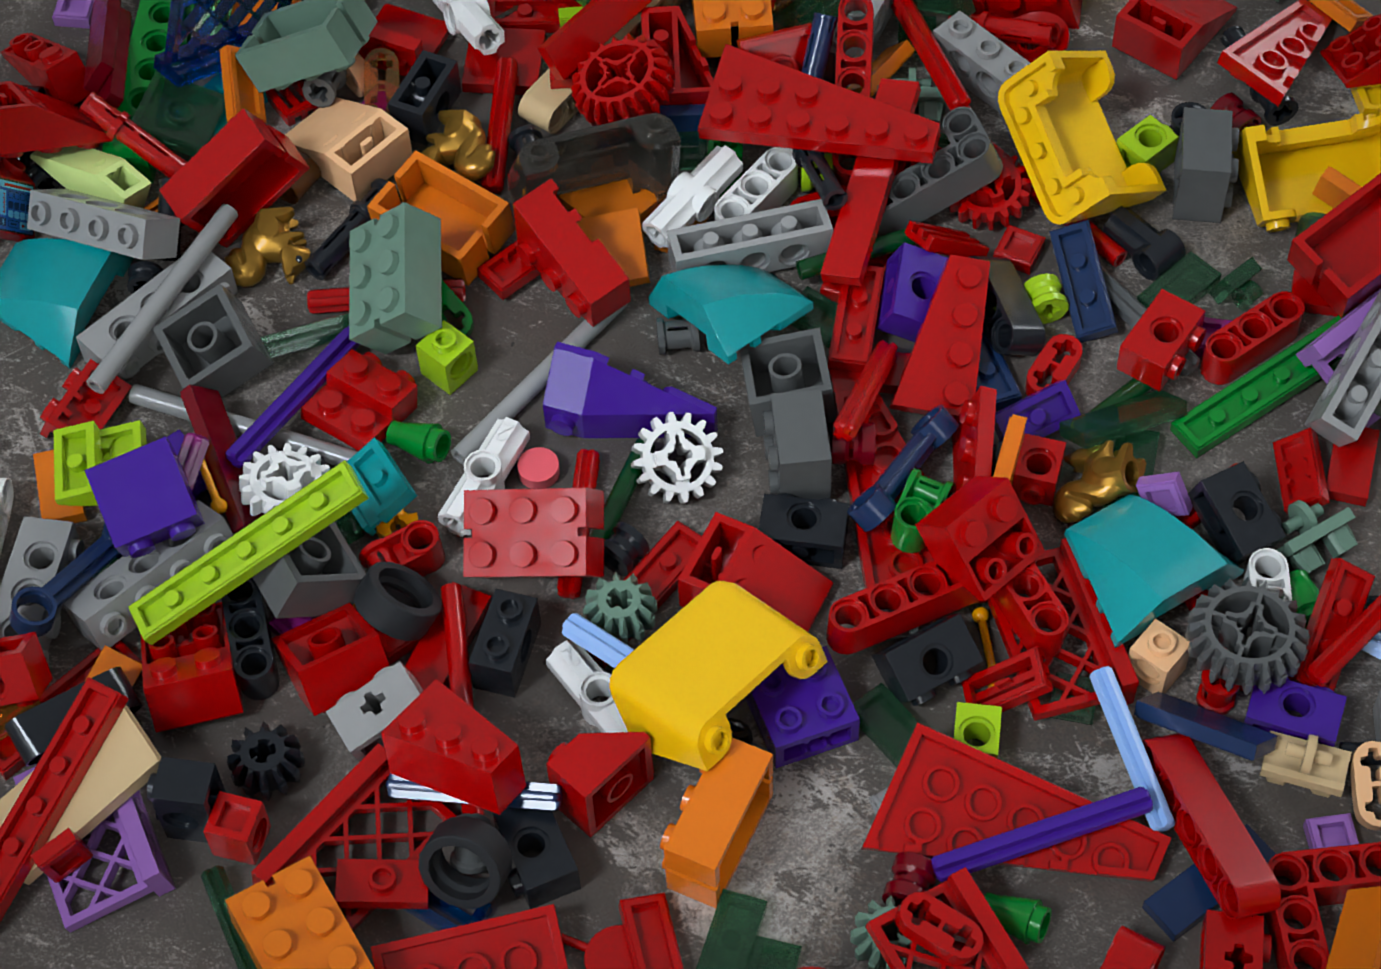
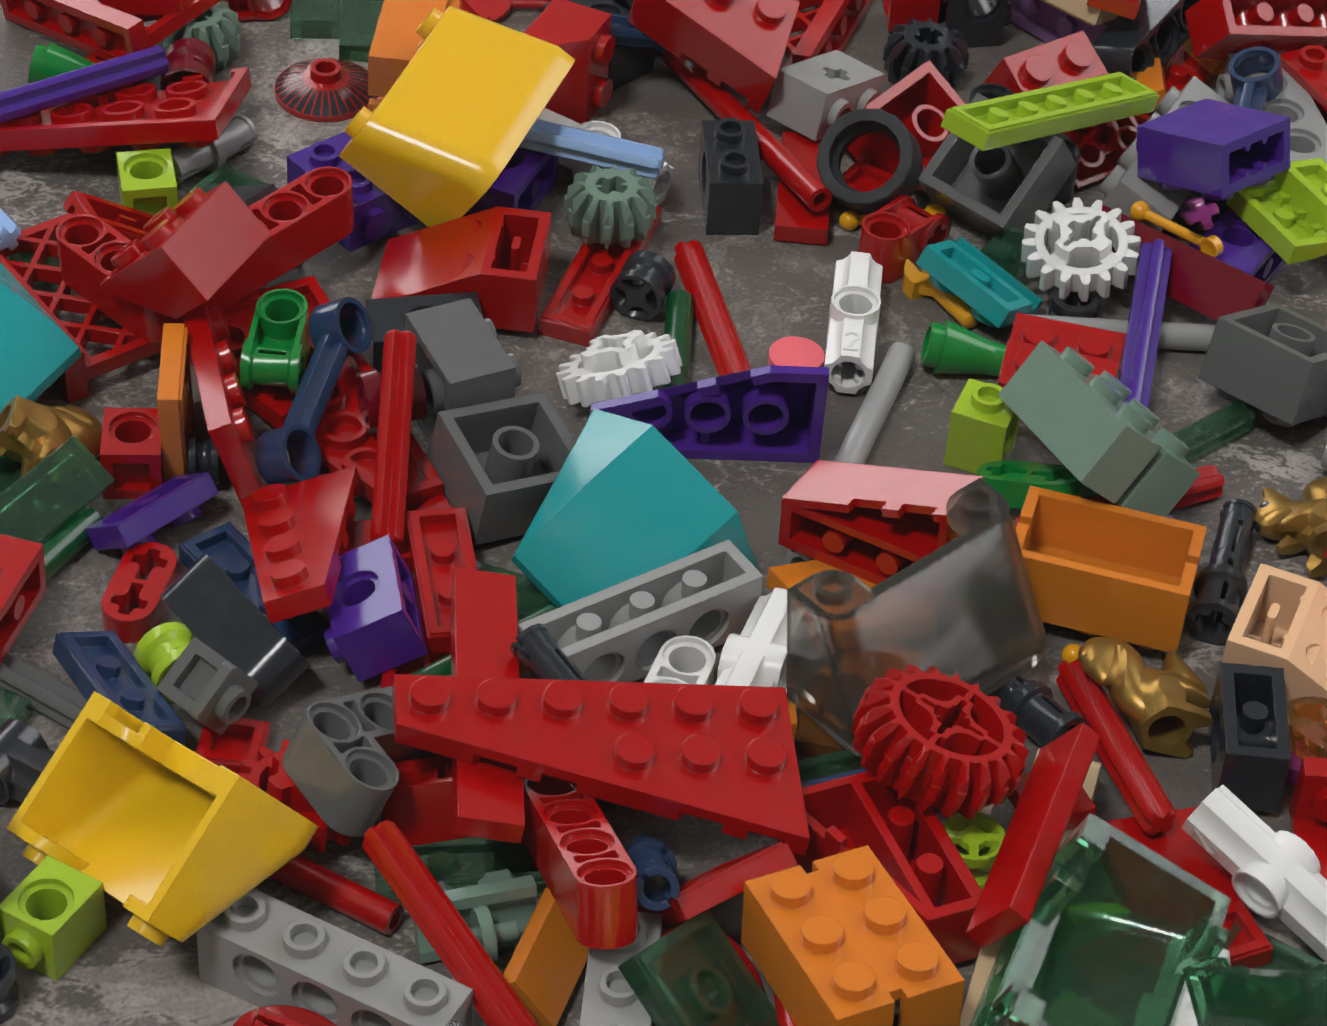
camera: 155 degrees right, 15 degrees down
(533, 533) = (748, 224): piece -> none
(790, 886) = (323, 89): none -> dish
(944, 240) = (334, 654): red tile -> none
(1025, 248) = (208, 686): none -> dark grey bracket

